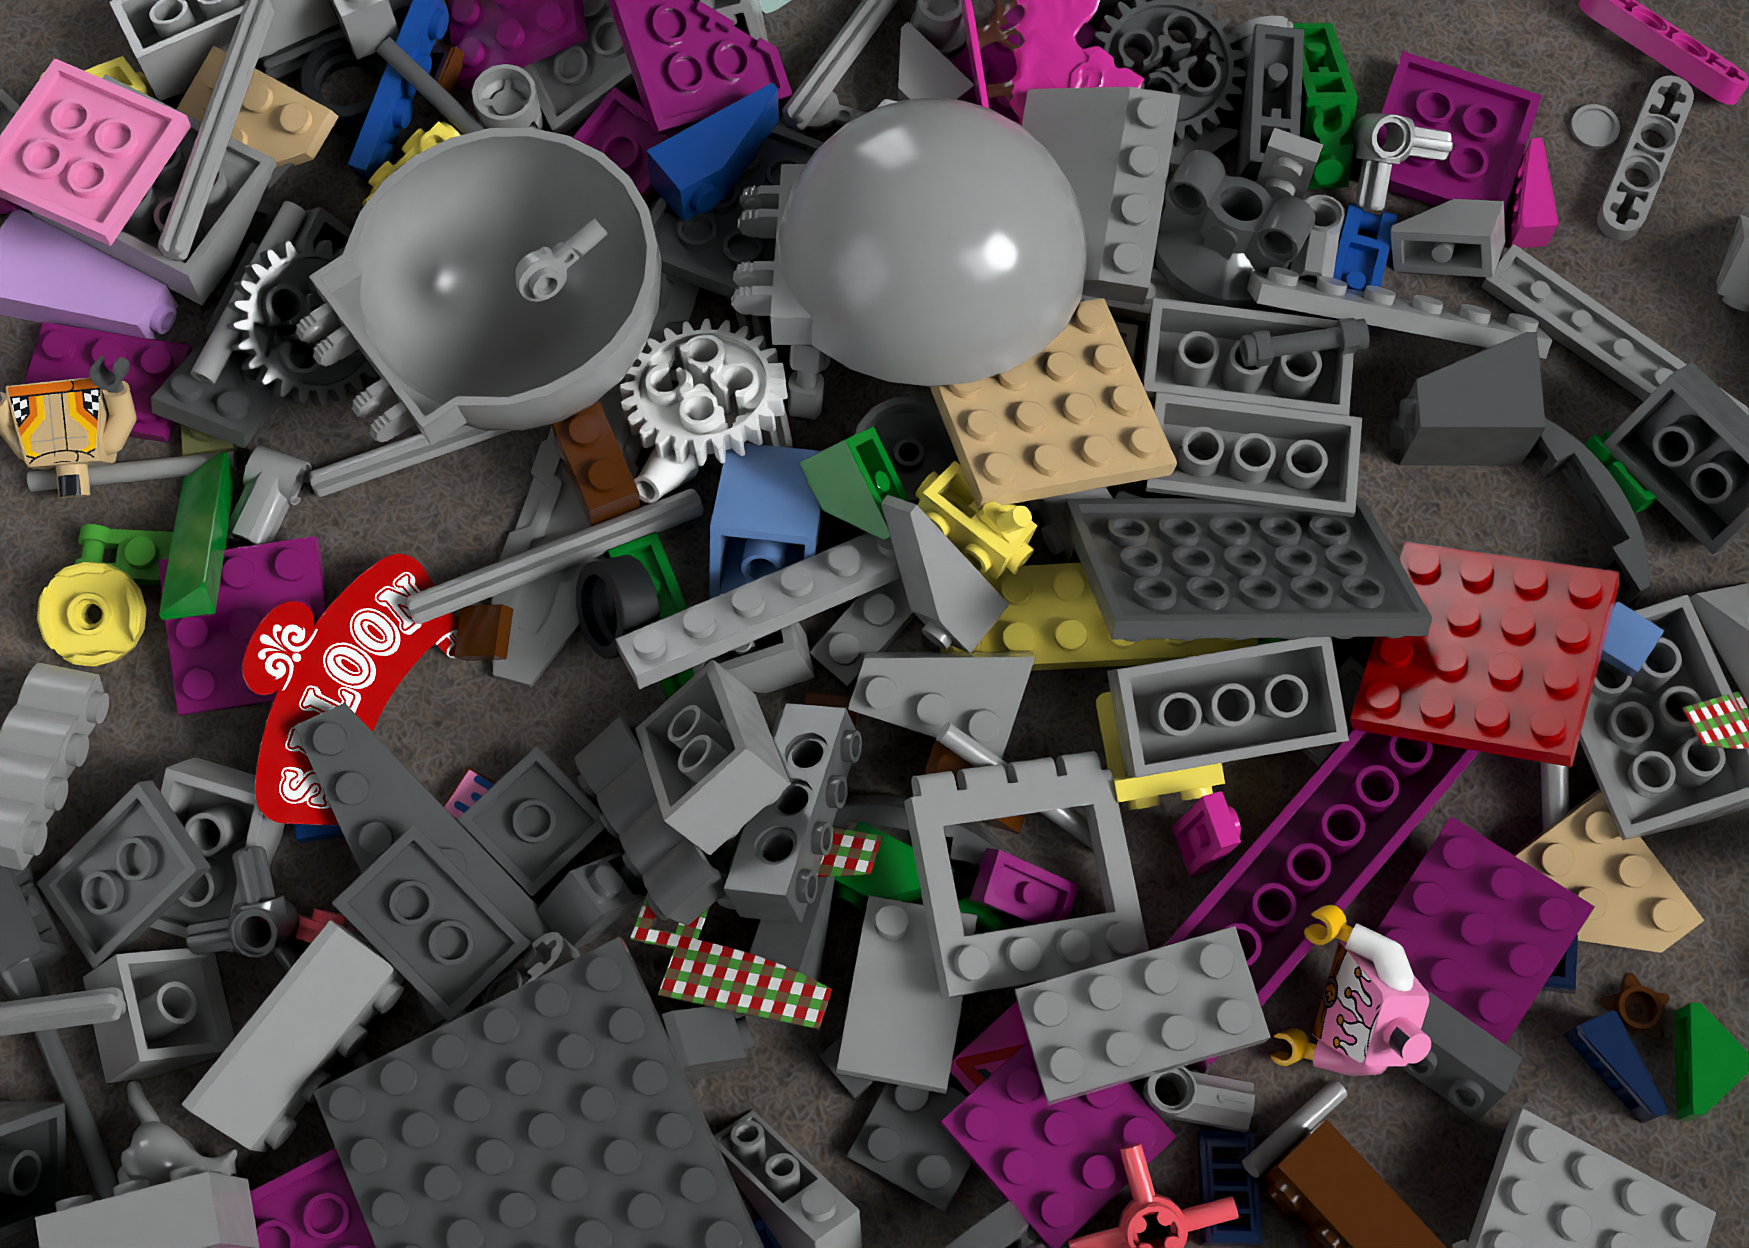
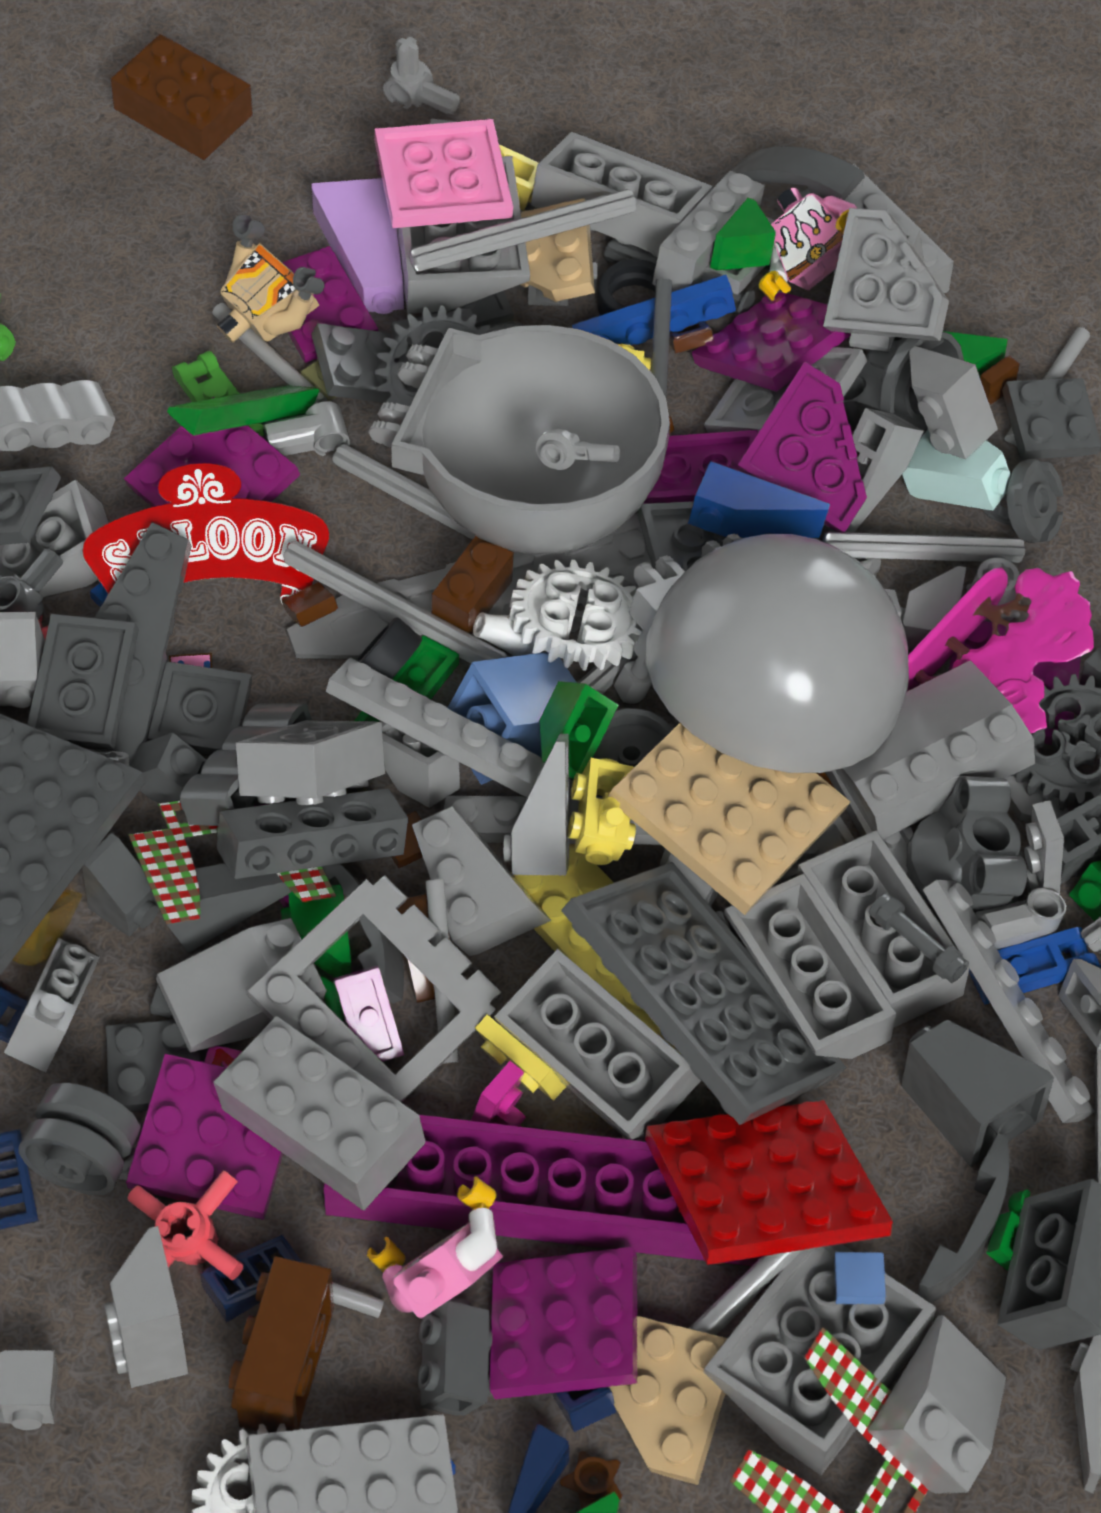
camera: 55 degrees right, 15 degrees down
(65, 618) = (142, 381): light yellow plate -> none
(220, 341) = (375, 334): light grey piece -> none
(507, 98) = (693, 386): light grey wheel -> none
(1203, 1099) = (304, 1215): light grey piece -> none

